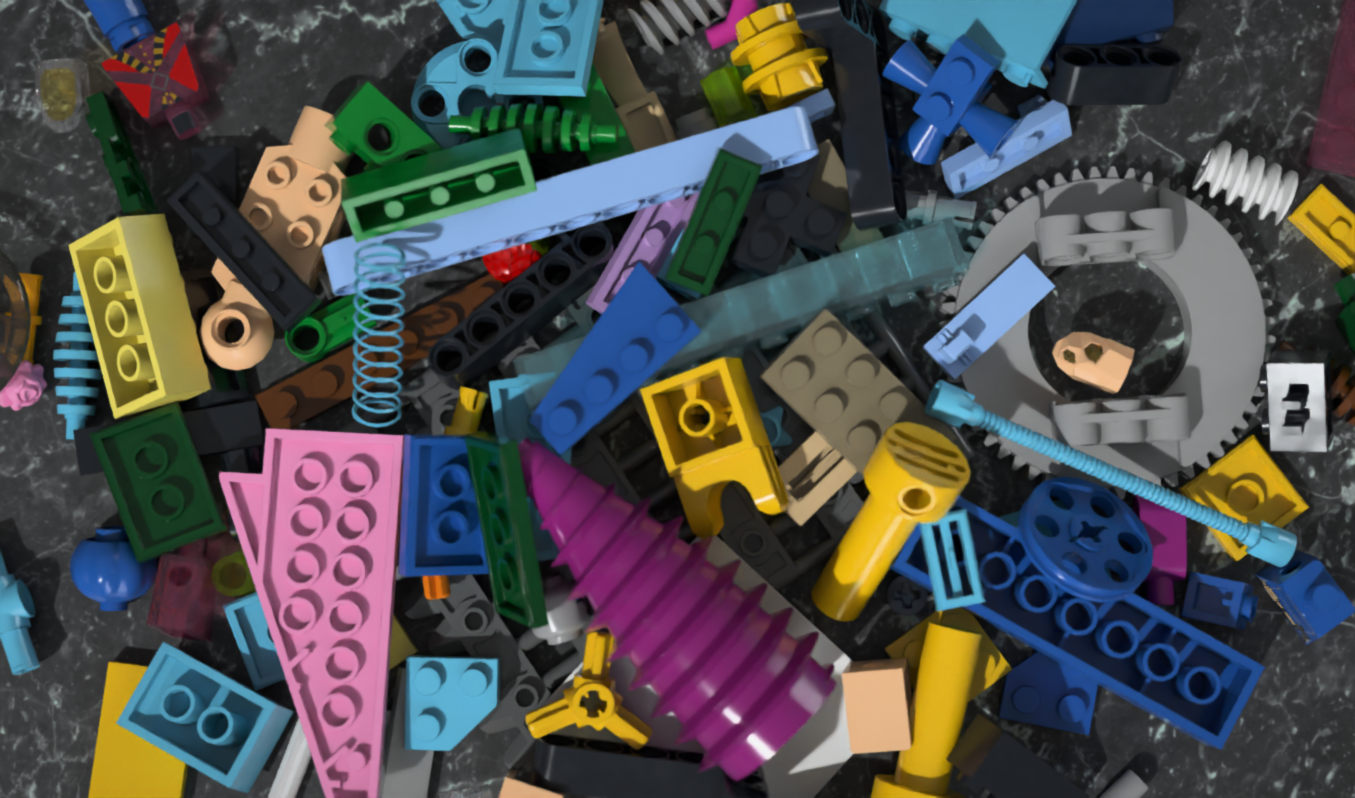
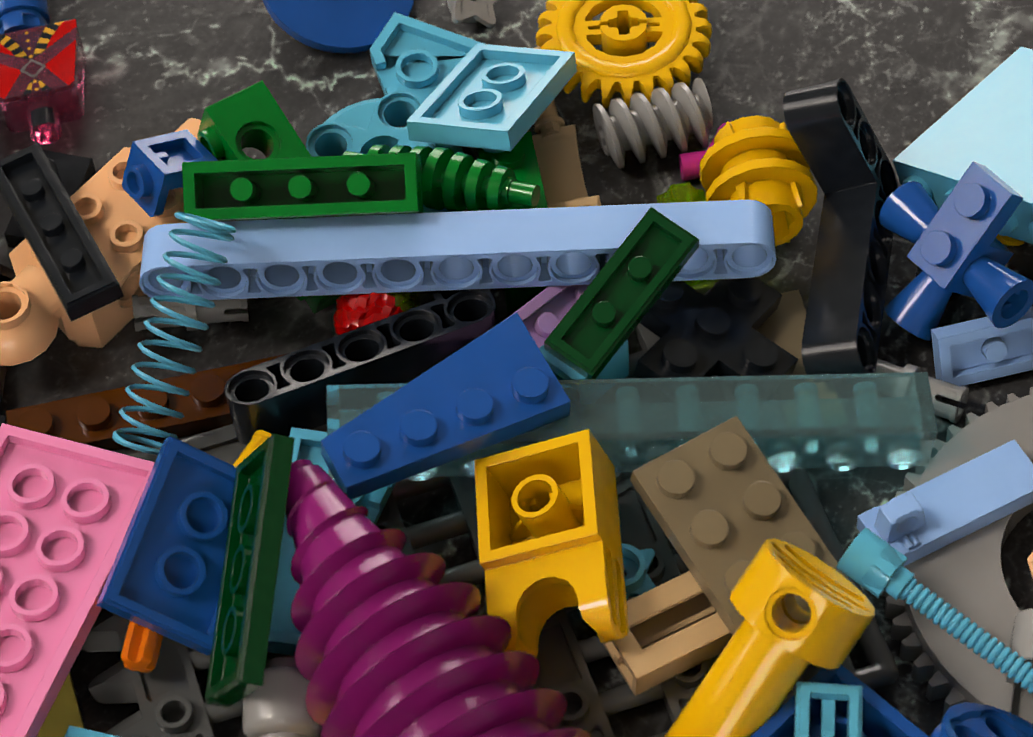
camera: 15 degrees right, 30 degrees down
(315, 174) = (156, 167): none -> blue bracket
(334, 327) = (113, 357): green piece -> none
(817, 105) = (793, 253): light blue tile -> none

